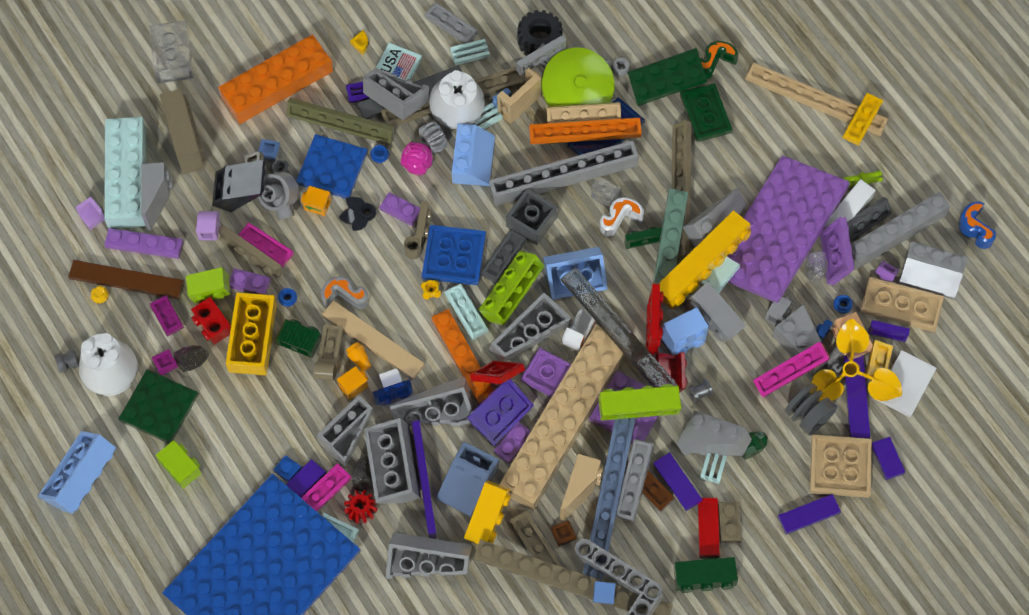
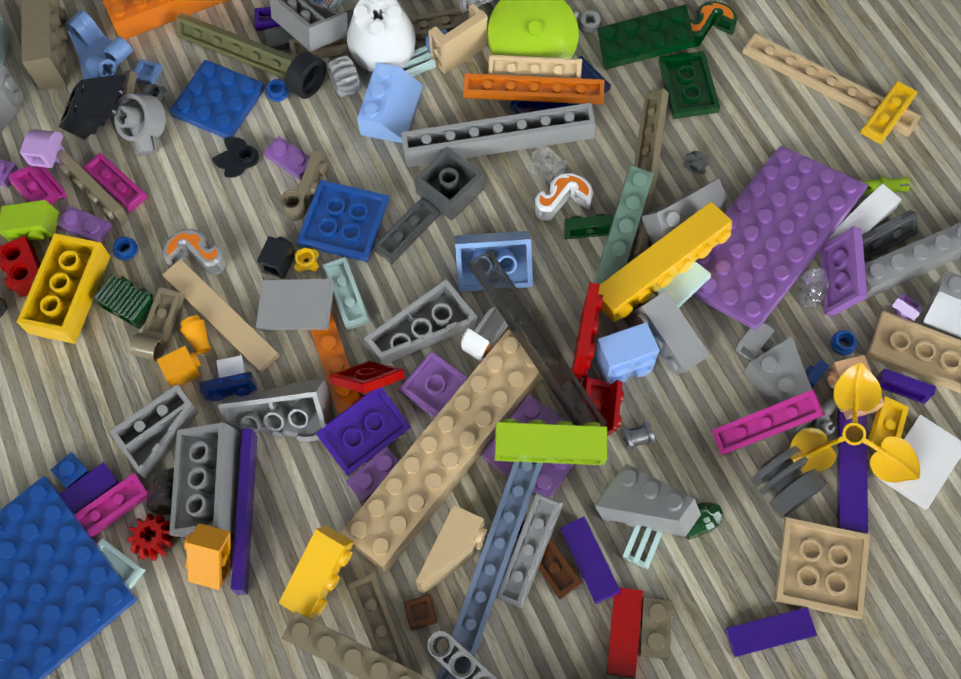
camera: 10 degrees right, 0 degrees up
(205, 255) = (36, 184): none -> dark pink plate
(224, 139) = (95, 51): none -> medium blue panel
(316, 200) = (188, 136): light orange brick -> none
(401, 137) = (305, 74): none -> black tyre
(407, 512) = (208, 556): none -> light orange brick
(408, 289) = (276, 257): none -> black brick
(416, 158) = (319, 99): dark pink hair -> none
(426, 556) = (223, 621): light grey wedge -> none
(430, 325) = (295, 304): none -> light grey tile
(466, 478) = (301, 509): sand blue slope -> none
(511, 287) = (407, 269): lime brick -> none
(719, 176) = (696, 162): none -> dark grey plate
(888, 458) = (890, 565): dark purple tile -> none

